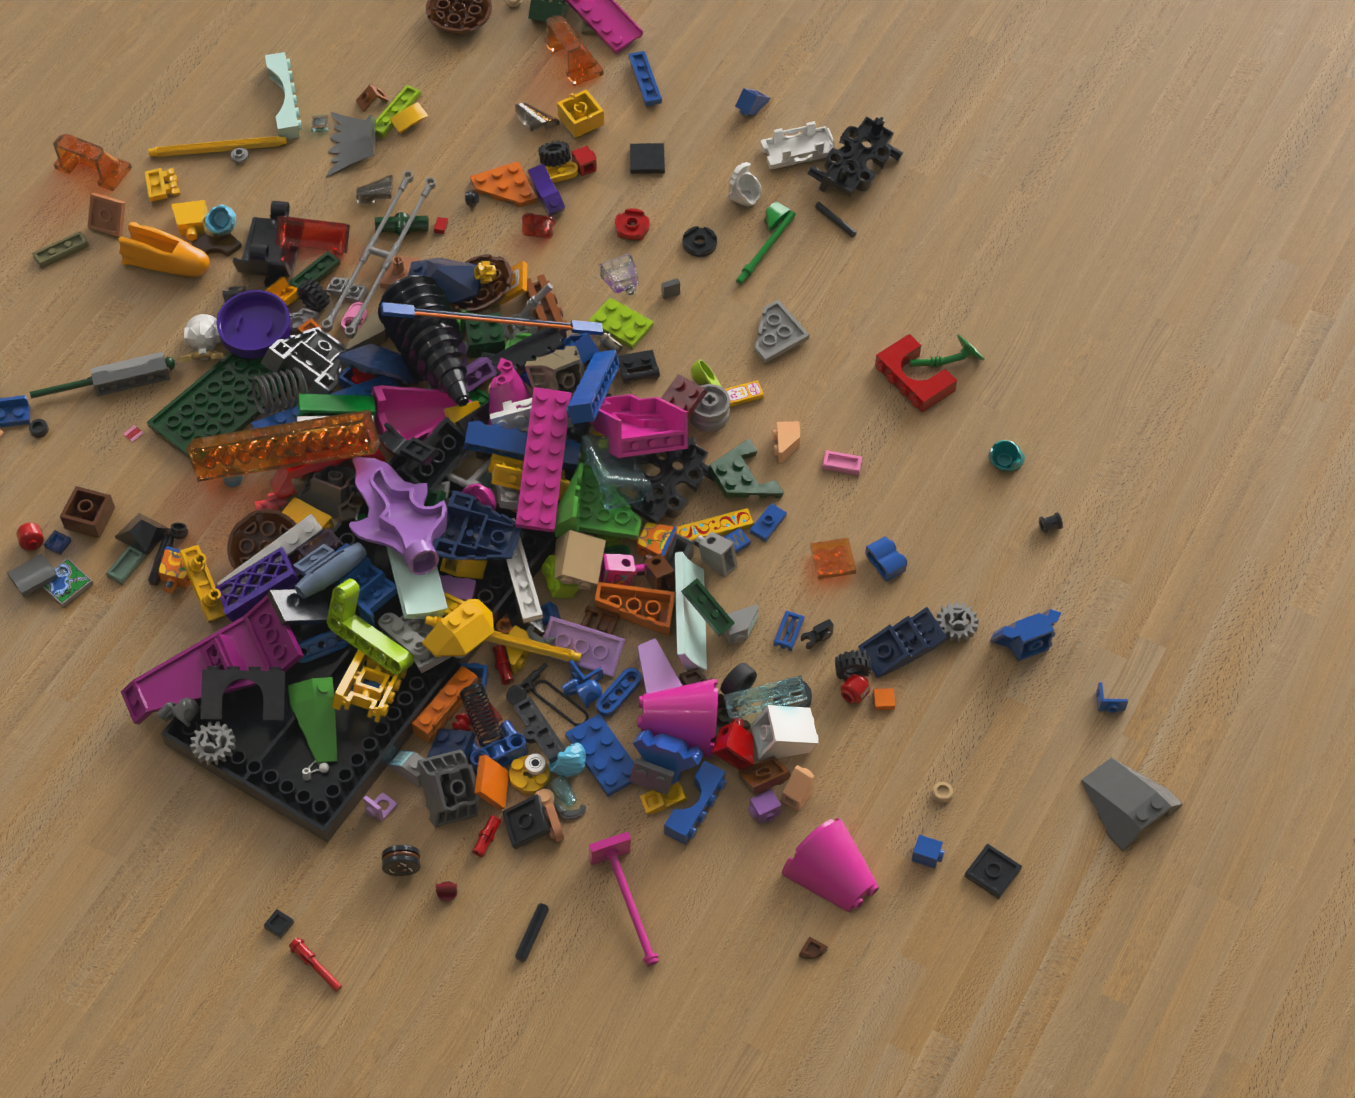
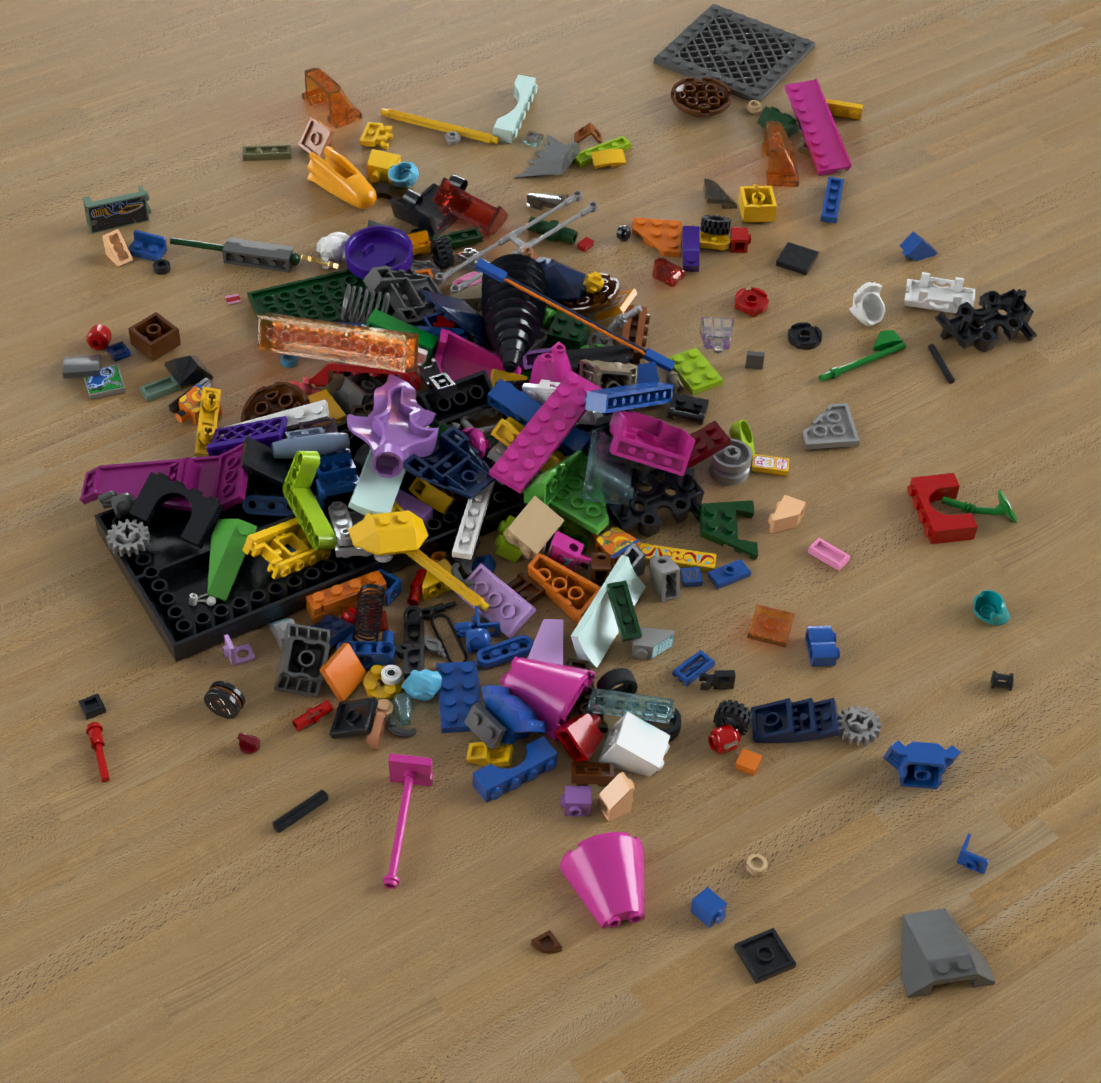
camera: 25 degrees right, 10 degrees down
(178, 530) = (217, 379): black plate -> none
(553, 716) = (434, 646): none -> light grey piece

